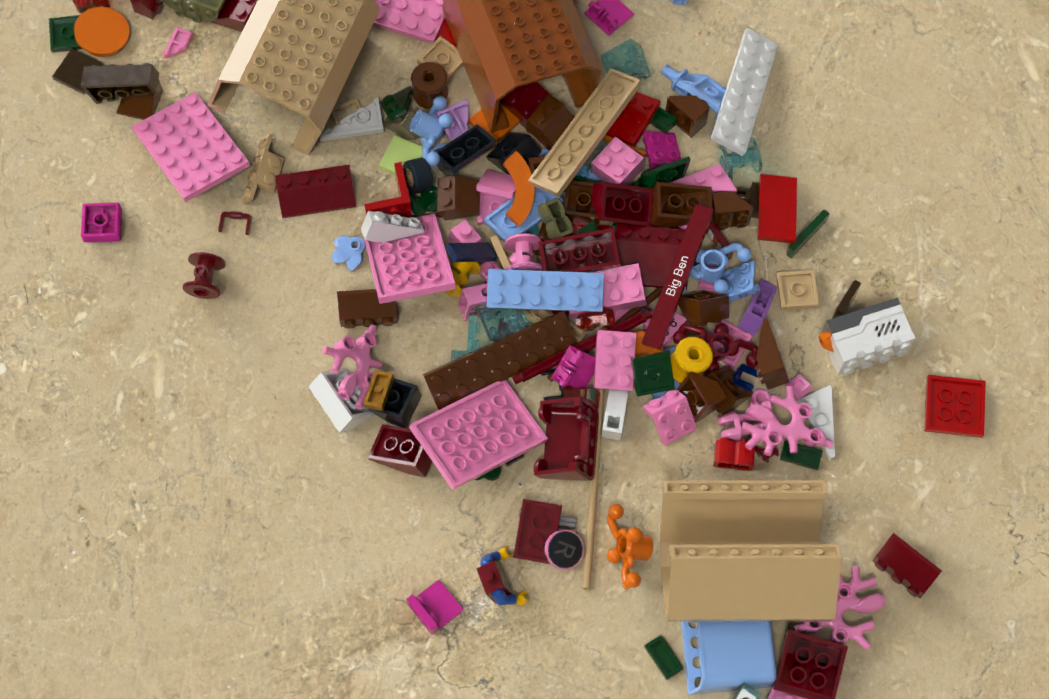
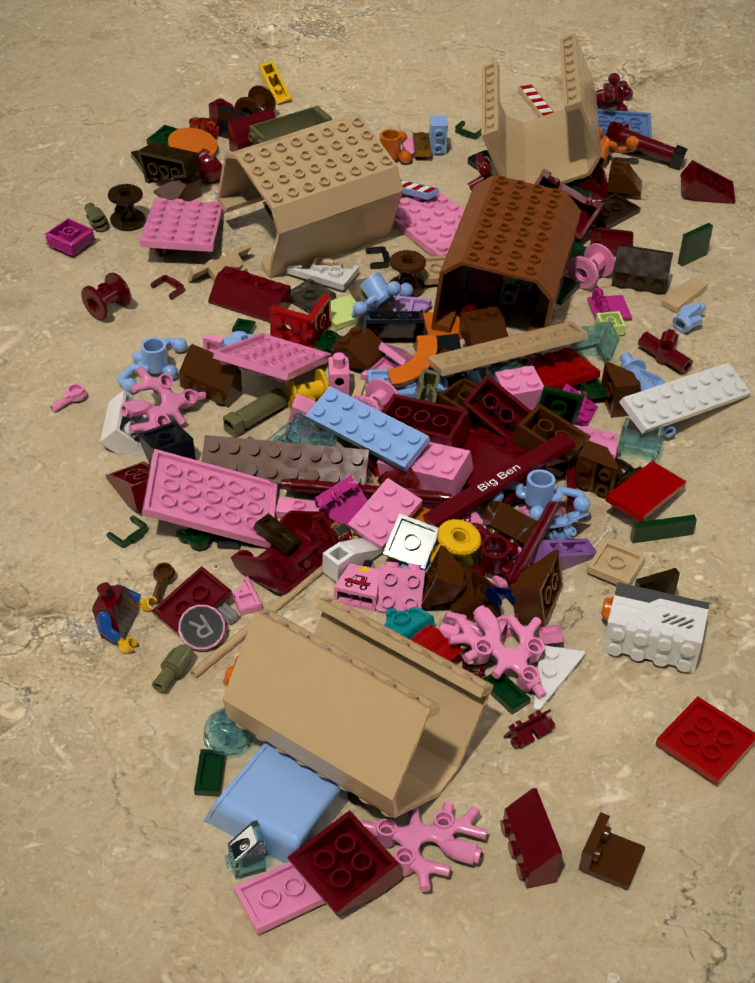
camera: 35 degrees right, 25 degrees down
(99, 181) = (96, 217): none -> olive arm
(123, 156) = (125, 214): none -> dark brown hose
(141, 53) = (211, 167): none -> dark red cylinder
(268, 393) = (74, 393): none -> bright pink plate
(302, 327) = (153, 359): none -> light blue wheel
(334, 267) = (212, 342): none -> bright pink plate
(337, 228) = (244, 325): none -> dark green tile
(362, 155) = (308, 294): none -> clear smoke tile
(378, 390) = (157, 423): pearl gold plate -> none
(386, 67) = (385, 254): none -> black piece
(387, 227) = (278, 332): white slope -> none
(397, 104) = (365, 272): dark green wing -> none
(418, 175) = (339, 317): black wheel -> none
(427, 321) = (238, 421): none -> olive piece
(434, 607) = (42, 606): dark pink bracket -> none
(440, 499) = (132, 537): none -> dark green piece
(471, 252) = (328, 373): dark blue tile -> none
(493, 520) = (163, 574): none -> reddish brown plate
(536, 391) = (286, 504): none -> bright pink plate
(549, 430) = (277, 534): none -> dark brown plate
(567, 498) = (246, 598): none -> bright pink tile
(571, 594) = (173, 666): none -> olive arm
(623, 32) = (615, 318): none -> yellowish green piece
(640, 434) = (358, 586): none -> bright pink torso
(651, 622) = (224, 735): none -> clear light blue cylinder
(683, 33) = (665, 350): none -> dark red piece
(697, 445) = (408, 622): none -> teal plate
(738, 317) = (532, 542): none -> dark red axle
(842, 468) = (521, 732): none -> dark red hinge
(956, 540) = (610, 855): none -> reddish brown bracket

